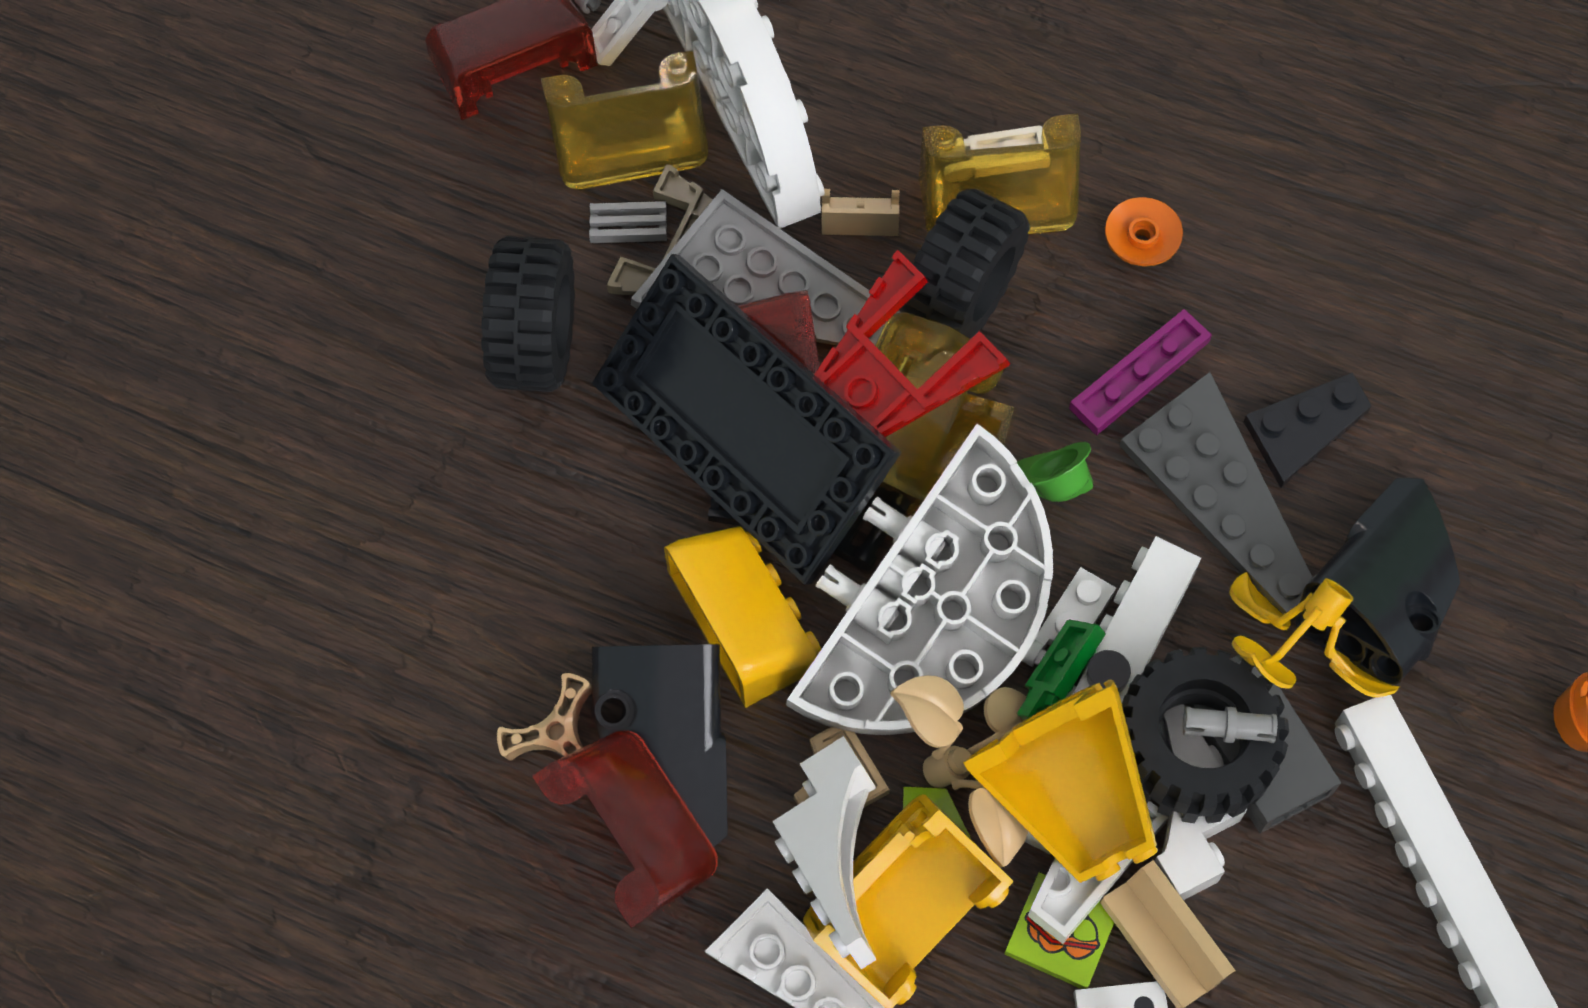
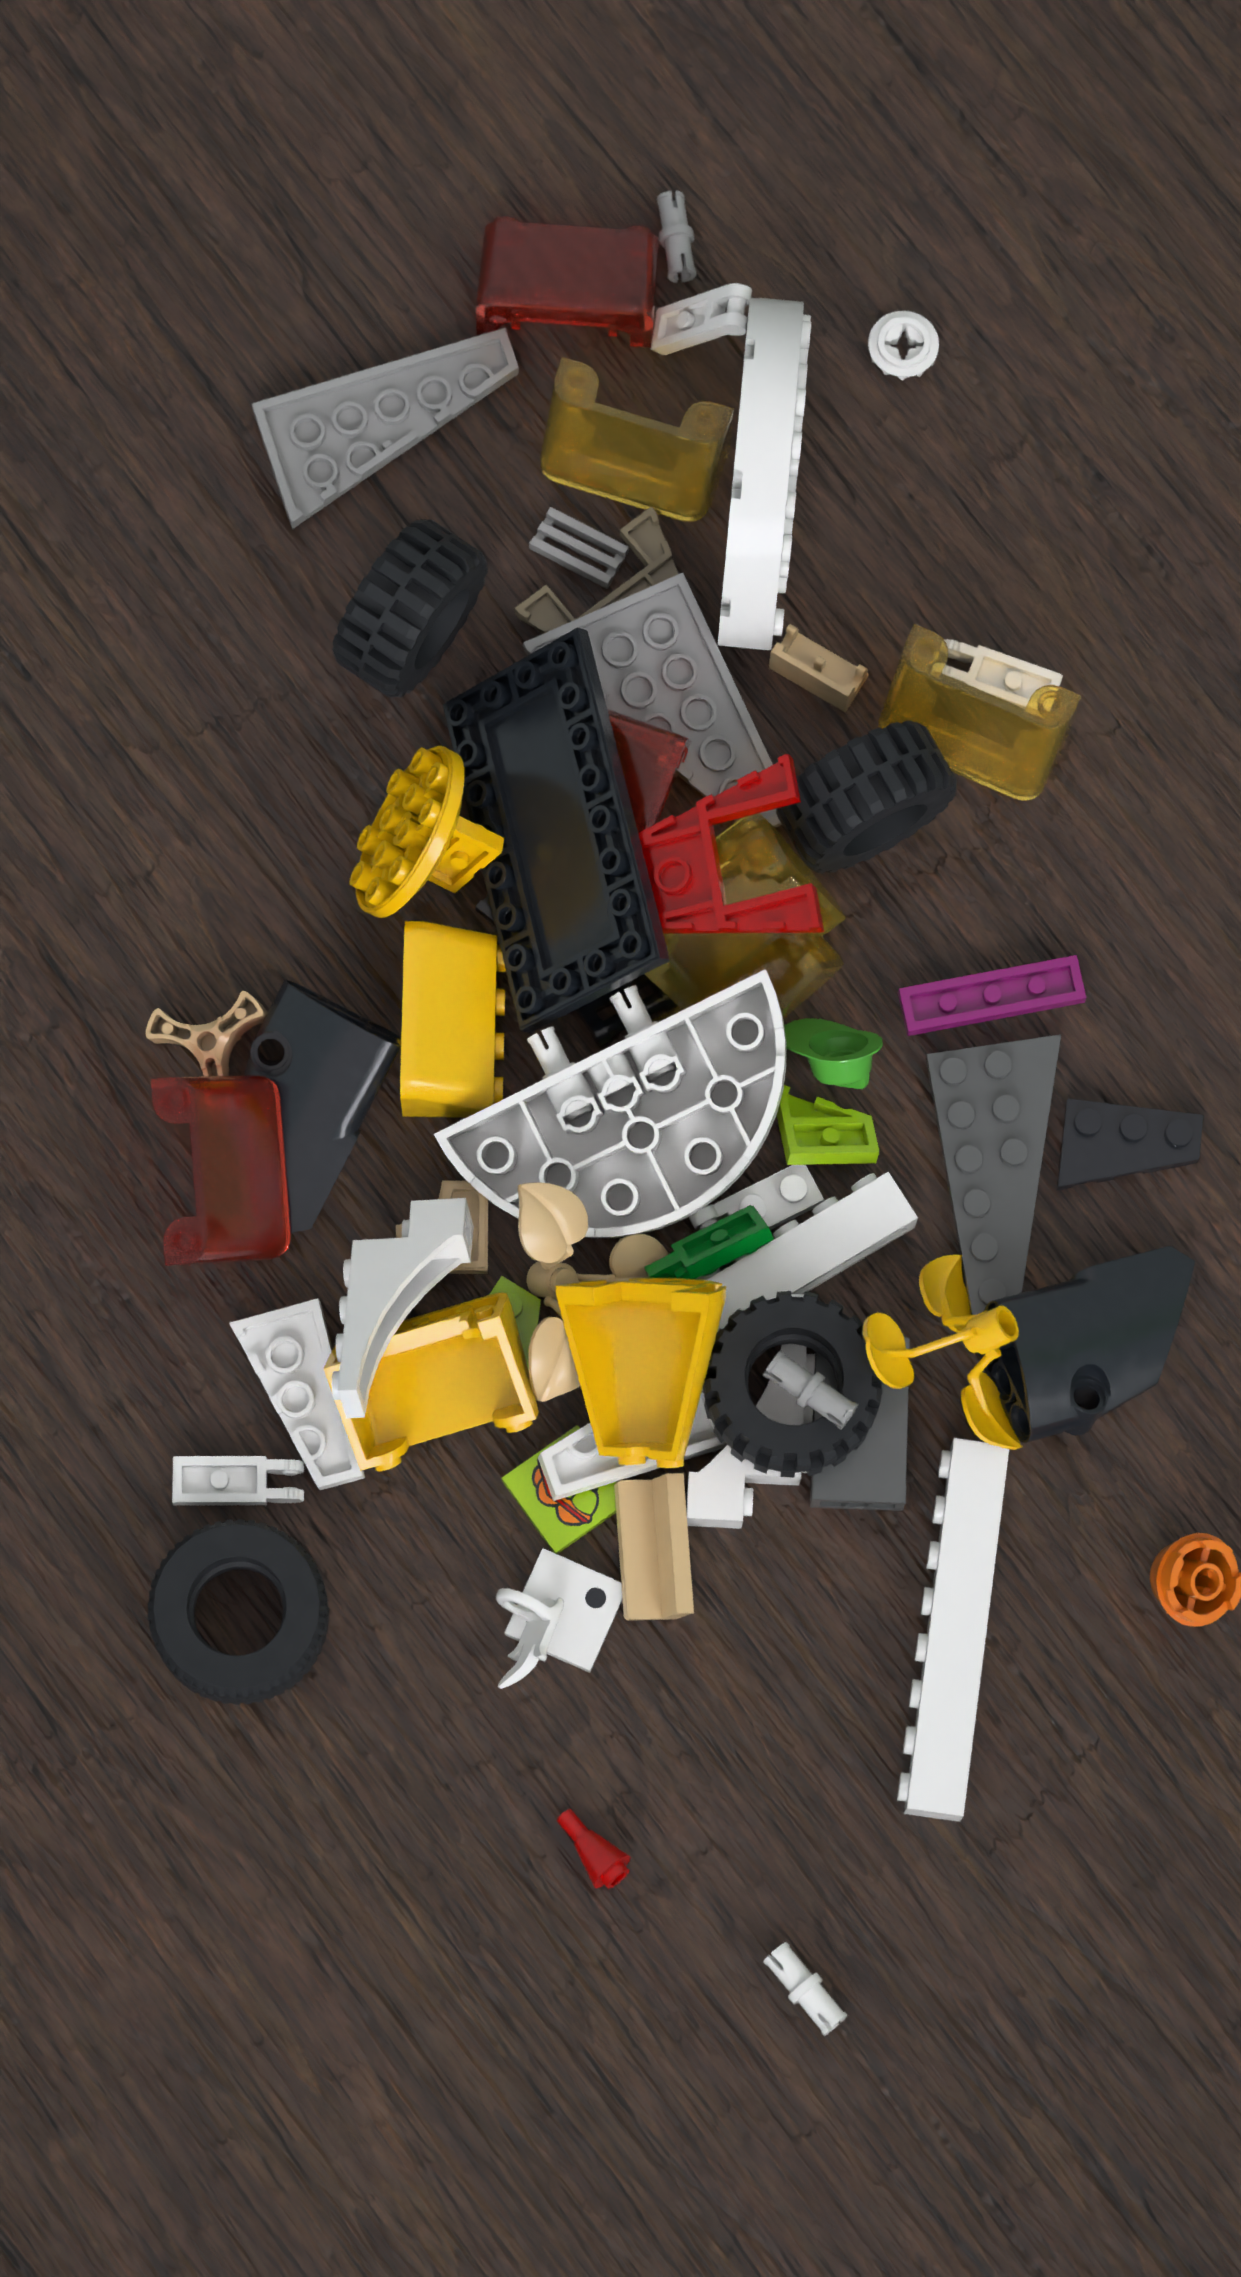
camera: 25 degrees right, 10 degrees up
(404, 224) = (353, 425): none -> light grey wing
(636, 477) = (420, 836): none -> yellow bracket
(1089, 537) = (824, 1132): none -> lime wing
(1108, 666) = (752, 1277): black tile -> none
(1143, 218) = (1095, 829): orange dish -> none

